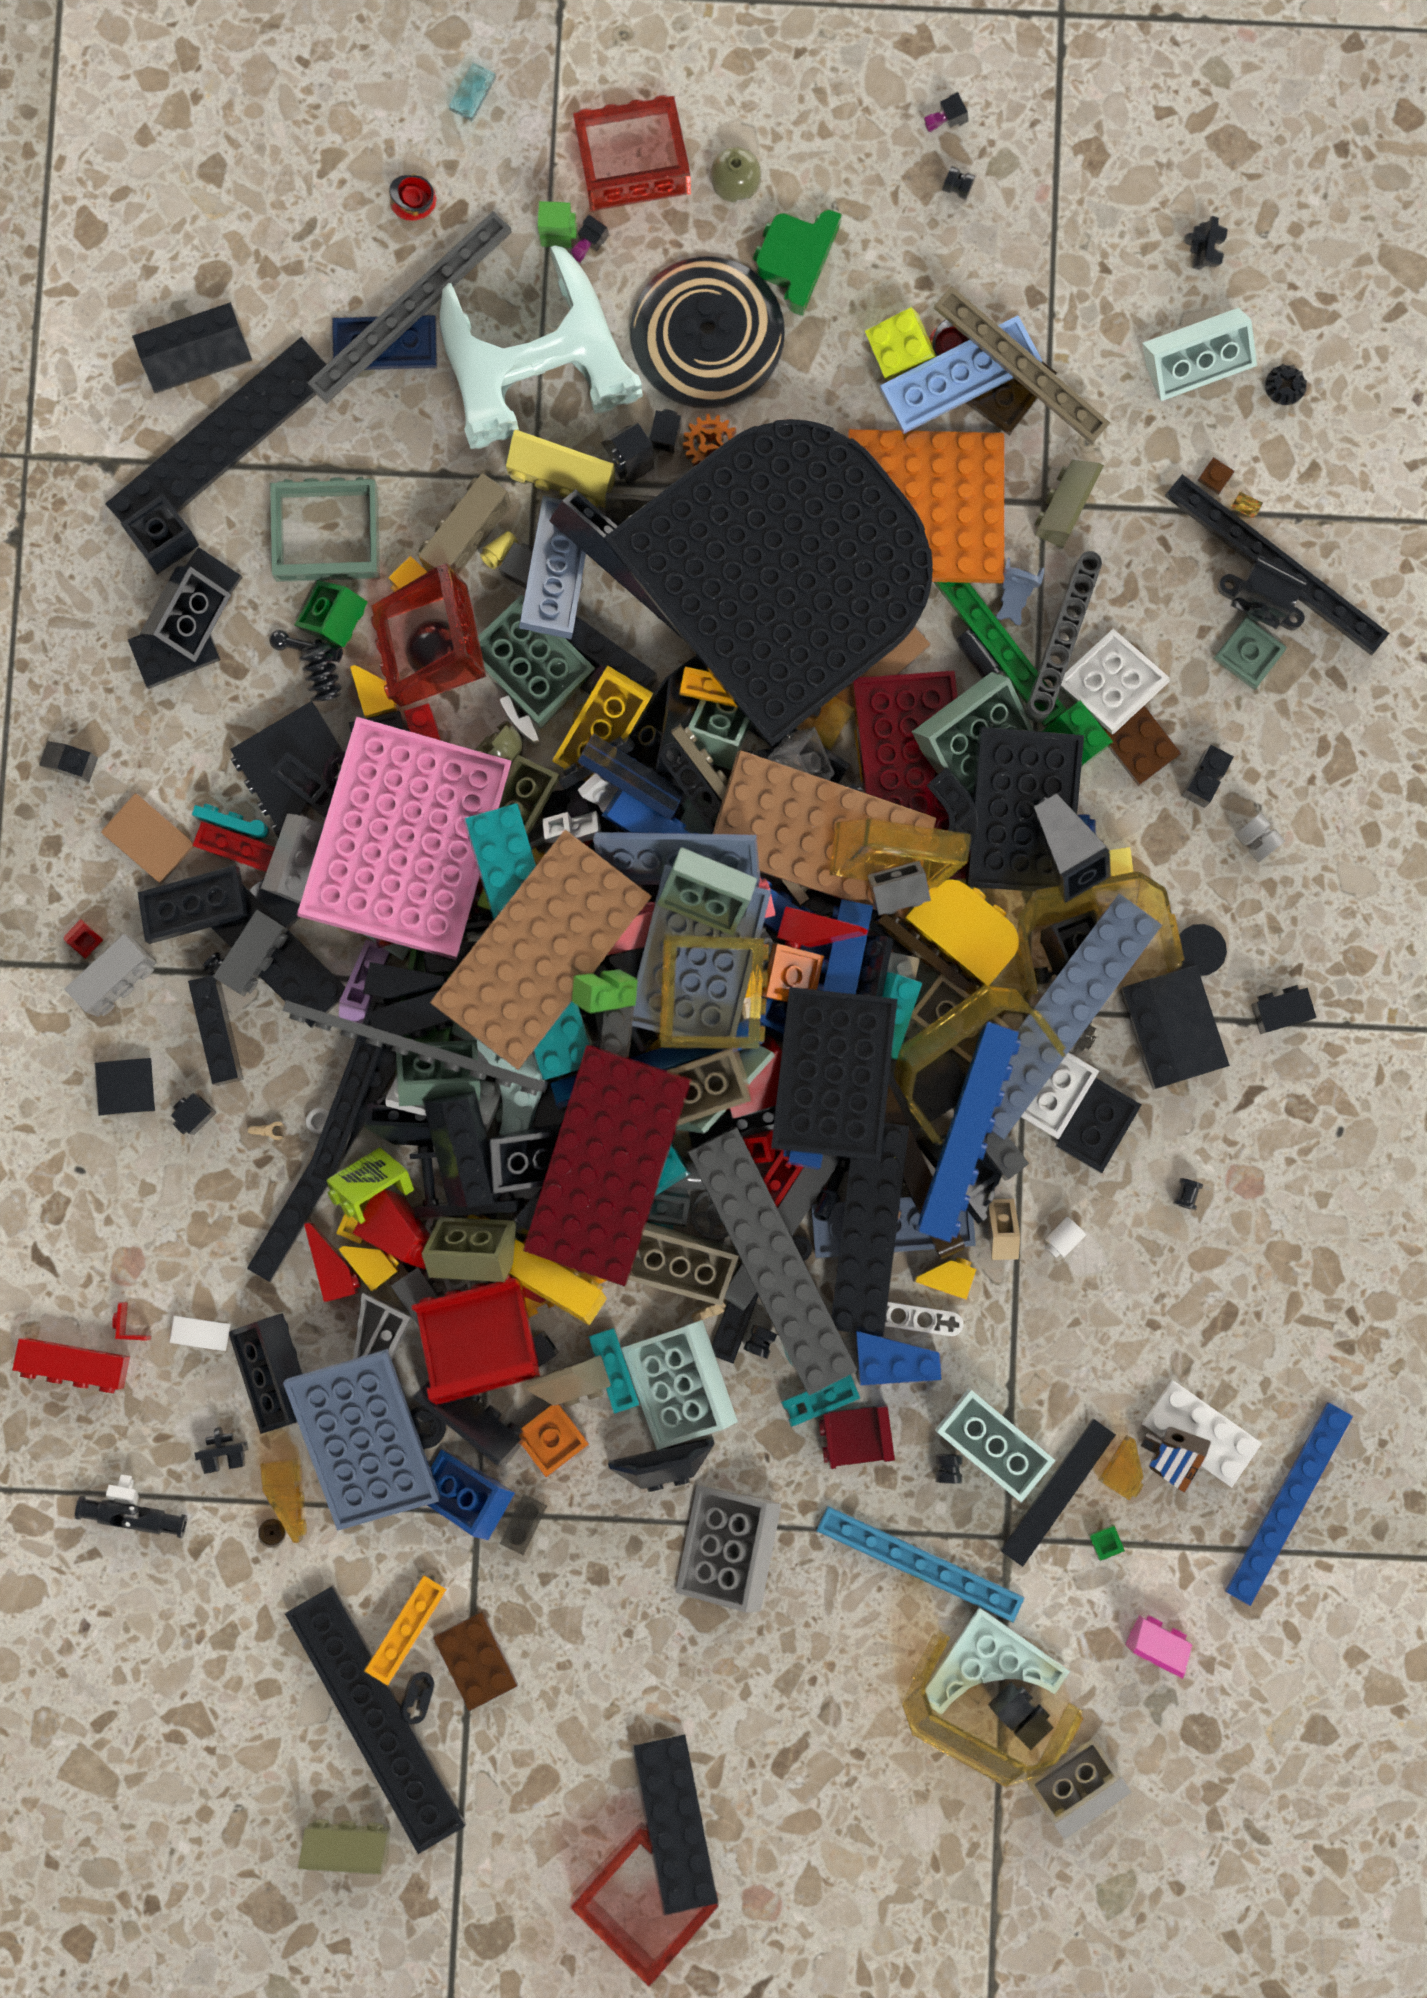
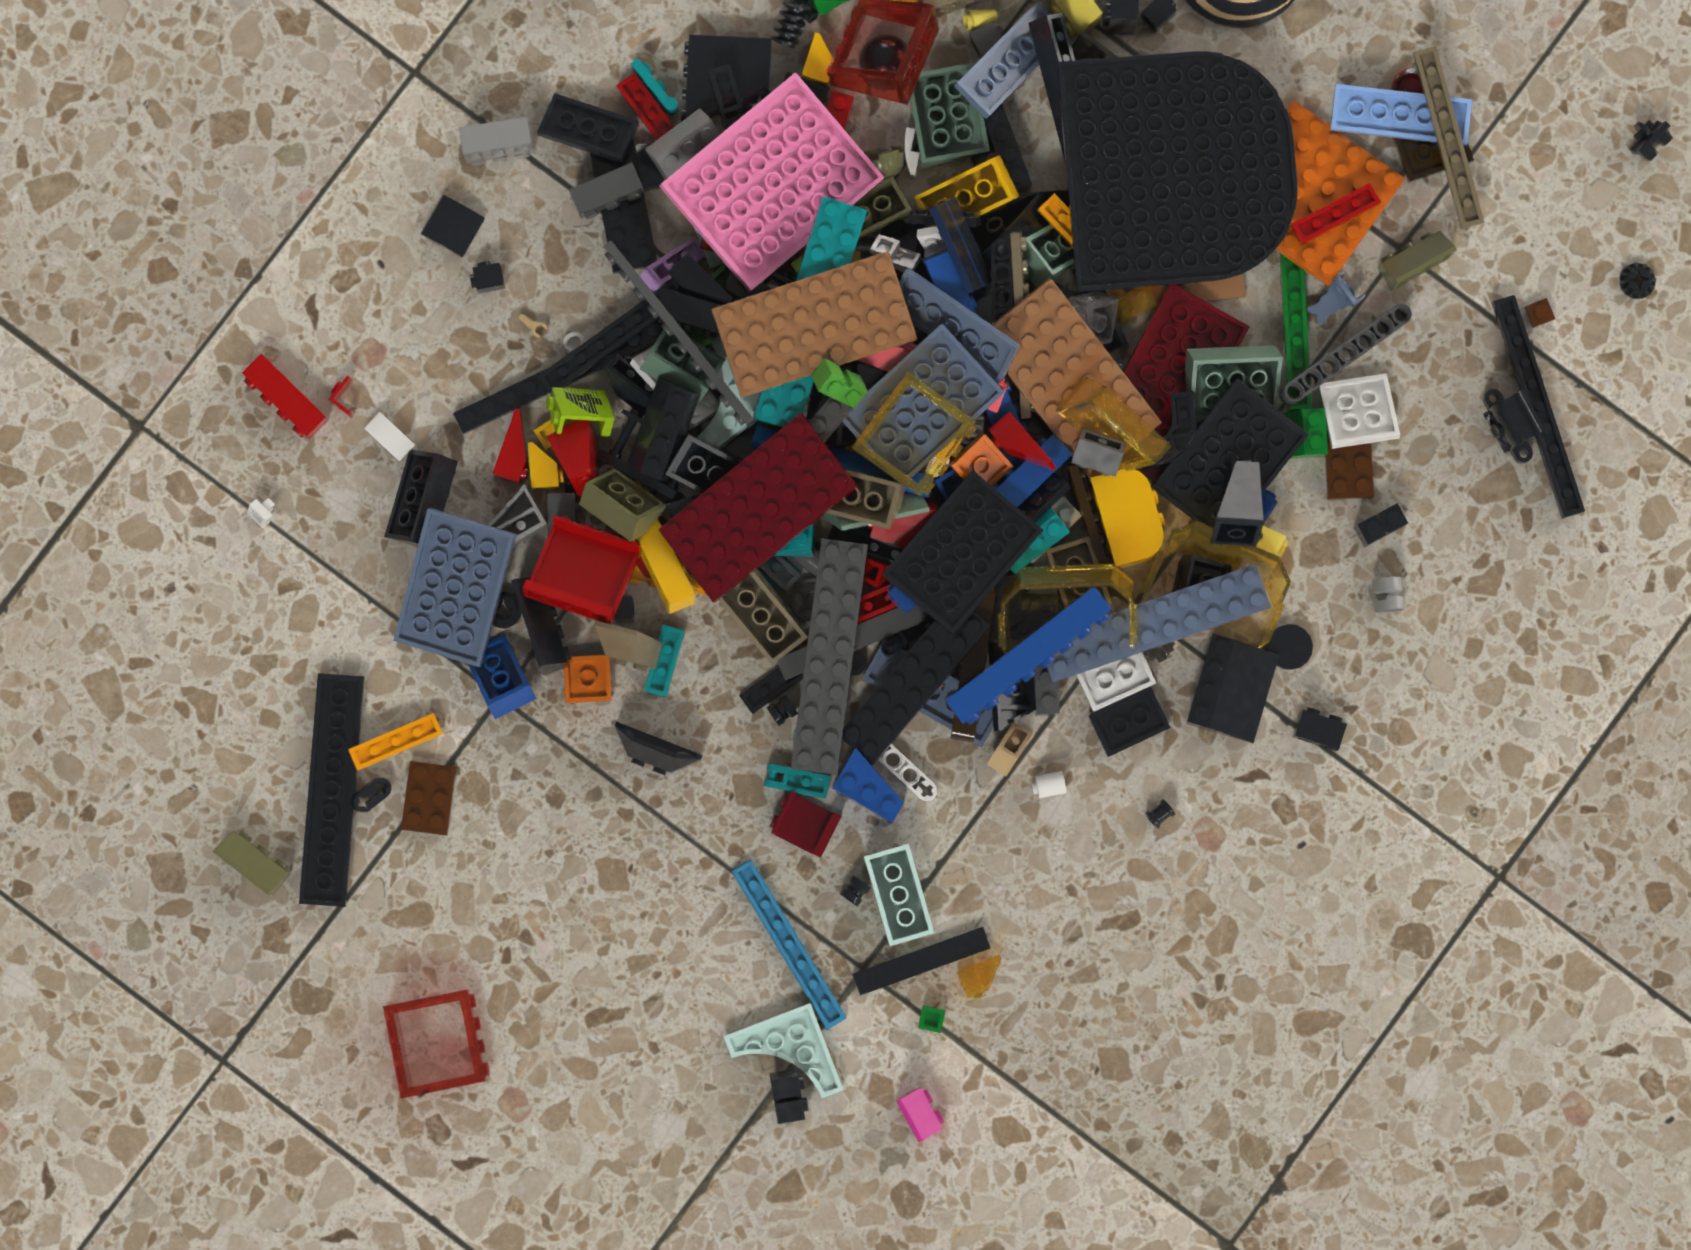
camera: 30 degrees right, 0 degrees up
(82, 938) = (493, 100): red slope -> none
(135, 1517) = (261, 539): black piece -> none
(148, 838) = (587, 59): medium nougat tile -> none
(212, 963) = (573, 180): black bush -> none
(215, 1030) = (544, 229): black brick -> none
(234, 1452) = (357, 537): black hips -> none
(271, 1533) = (346, 611): dark brown tile -> none
(281, 1489) = (373, 586): clear yellow slope -> none
(523, 1524) = (527, 725): clear smoke plate -> none
(674, 1825) = (492, 1004): black plate -> none
(679, 1385) = (704, 702): light aqua slope -> none
(702, 435) = (1182, 29): orange gear -> none
(707, 891) = (958, 361): sand green slope -> none
(708, 1311) = (763, 665): tan piece -> none
(728, 1549) = (660, 840): light grey slope -> none
(900, 343) = (1372, 63): neon yellow brick -> none
(949, 1277) = (947, 756): yellow slope -> none
(964, 509) = (1335, 214): none -> red plate
(967, 1747) = (736, 1091): clear yellow piece -> none
(977, 654) = (1275, 326): black piece -> none
(1043, 975) = (1161, 587): black plate -> none
(1079, 1788) = (794, 1176): light grey slope -> none
(1176, 1455) = (1022, 990): torso -> none
(1200, 353) = (1589, 216): light aqua slope -> none
(1230, 1445) = (1052, 989): white plate -> none
(1246, 504) = (1546, 348): clear yellow tile -> none
(1250, 653) = (1475, 458): sand green tile -> none
(1288, 1503) = (1081, 1081): blue plate -> none

